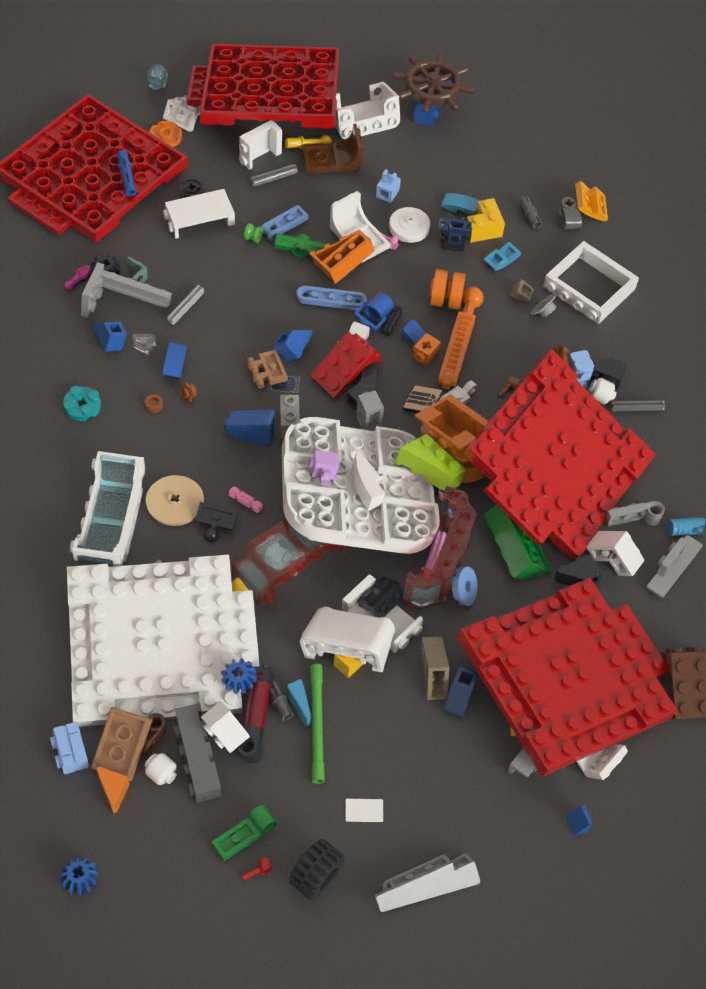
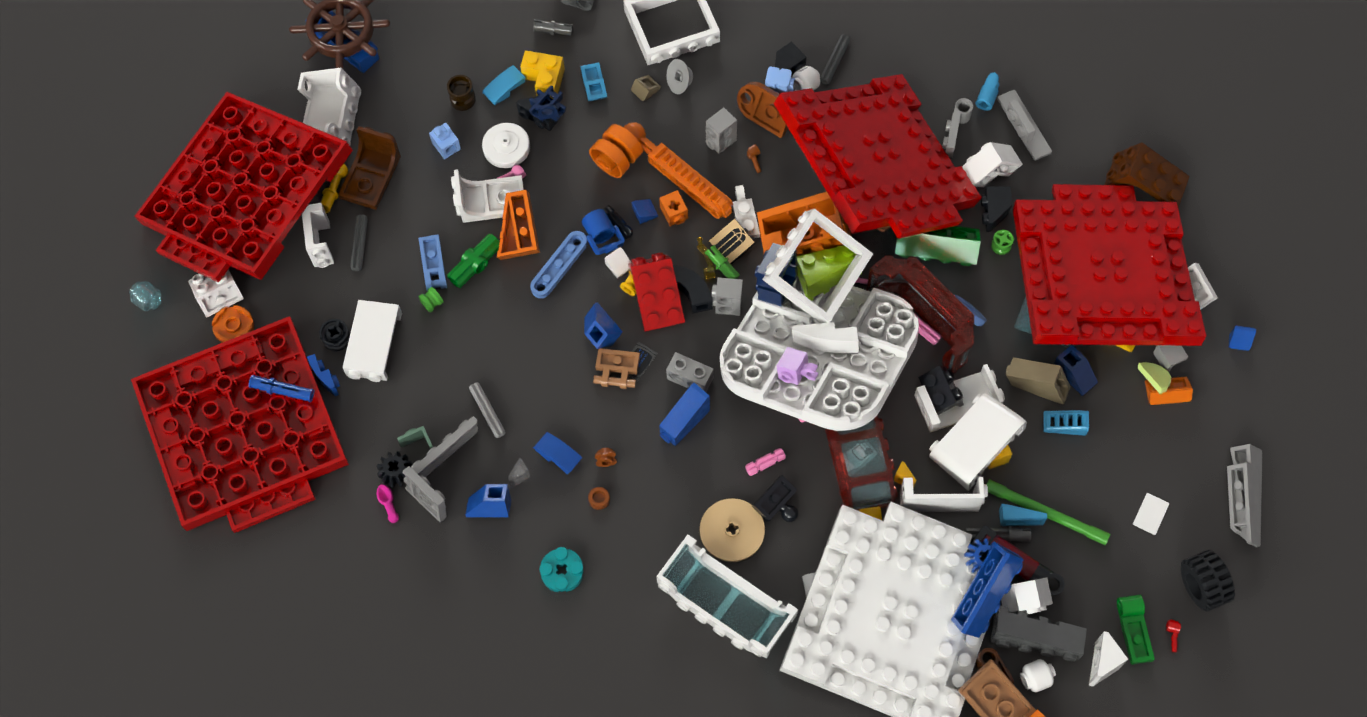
camera: 55 degrees left, 10 degrees up
(152, 201) = (324, 376): none -> blue slope
(198, 813) = (1106, 658): none -> white slope
(204, 684) = (987, 590): none -> blue slope
(268, 607) = (943, 502): none -> white panel
(289, 597) = (904, 472): none -> yellow slope
(389, 397) = (709, 272): none -> clear yellow piece
(399, 400) = (722, 263): none -> bright green axle
(401, 425) = (789, 274): none -> dark blue piece
(421, 717) = (1075, 415): none -> dark azure slope
(427, 472) = (844, 285): none -> white window
(433, 179) = (461, 92): none -> dark brown wheel
(491, 779) = (1178, 391): none -> orange slope
(496, 761) = (1156, 375): none -> yellowish green tile
(512, 348) = (721, 130): none -> light grey brick
(548, 585) = (1002, 237): none -> bright green wheel

